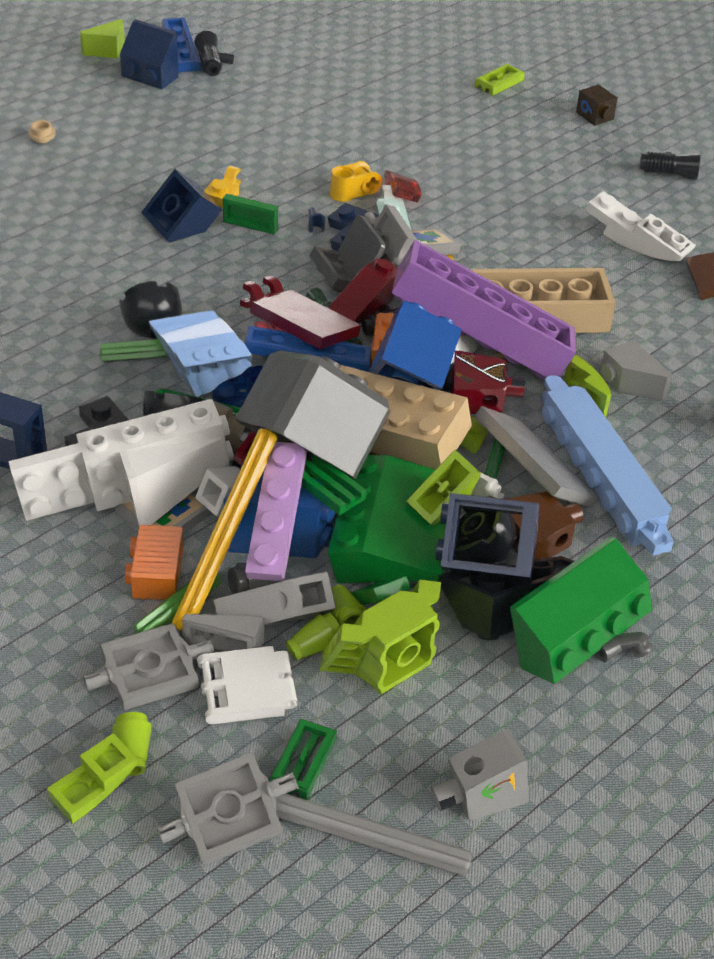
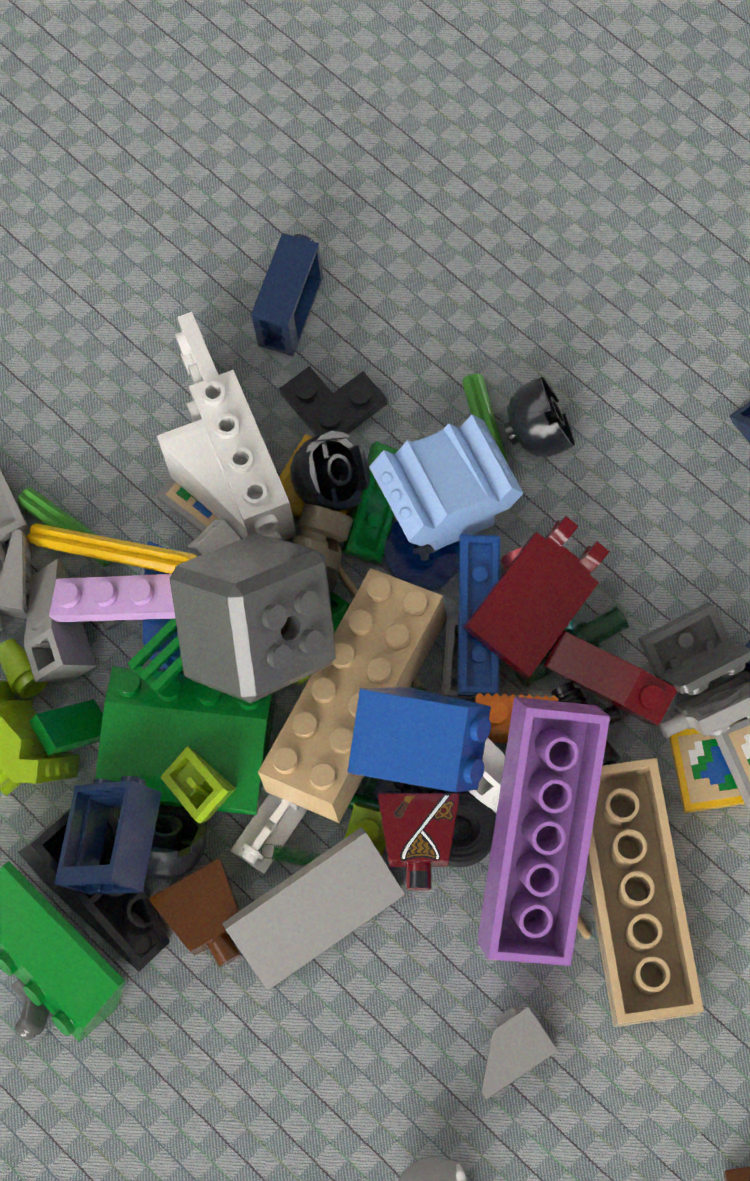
camera: 95 degrees right, 30 degrees up
(156, 562) = (116, 494): orange brick -> none
(347, 606) = (62, 694): lime cone -> none
(584, 375) = (462, 991): lime slope -> none
(607, 465) = (321, 1001): light blue hinge -> none

